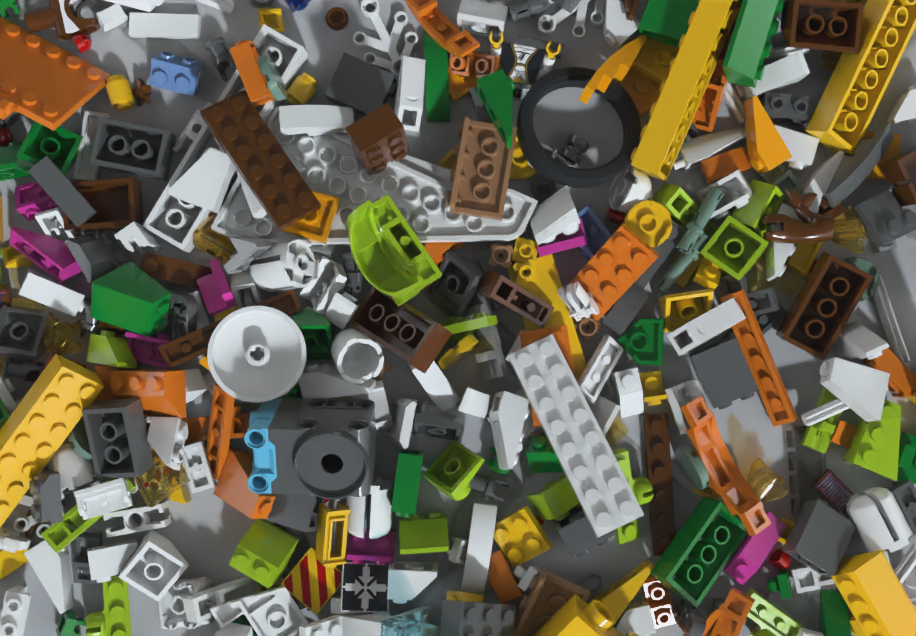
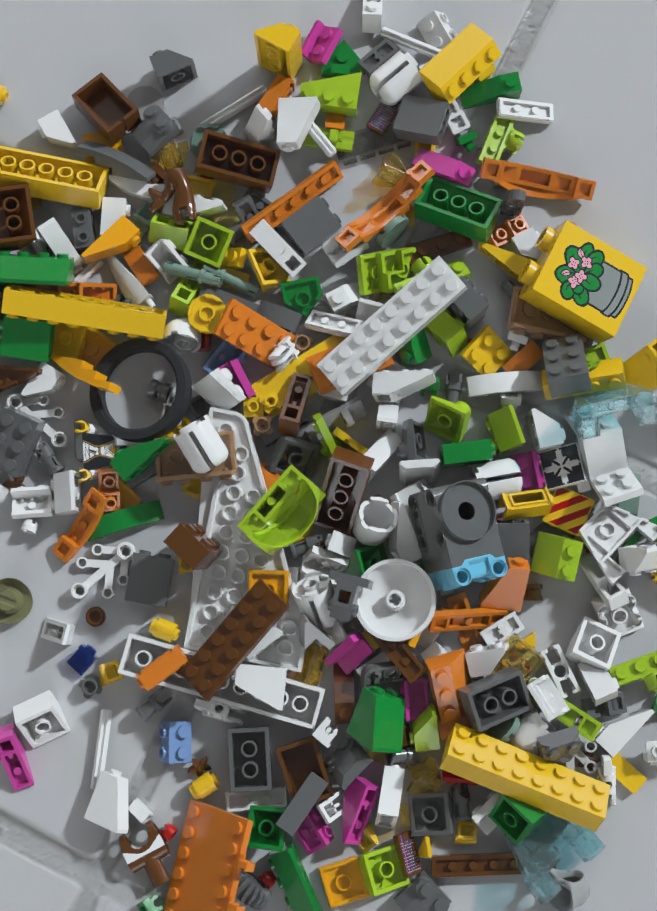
camera: 100 degrees left, 5 degrees down
(164, 25) = (136, 764): white tile -> none
(231, 515) = (533, 592): none -> dark brown wheel
(272, 76) = (163, 648): sand green tile -> none
(287, 306) = (341, 611): none -> dark grey tile
(314, 119) = (187, 607): white slope -> none
(410, 92) = (144, 536): white slope -> none
(491, 177) = (201, 445): none -> white cylinder
(649, 443) = (383, 269): none -> lime slope
(652, 387) = (337, 278): yellow bracket -> none
(780, 559) = (448, 146): red hinge -> none

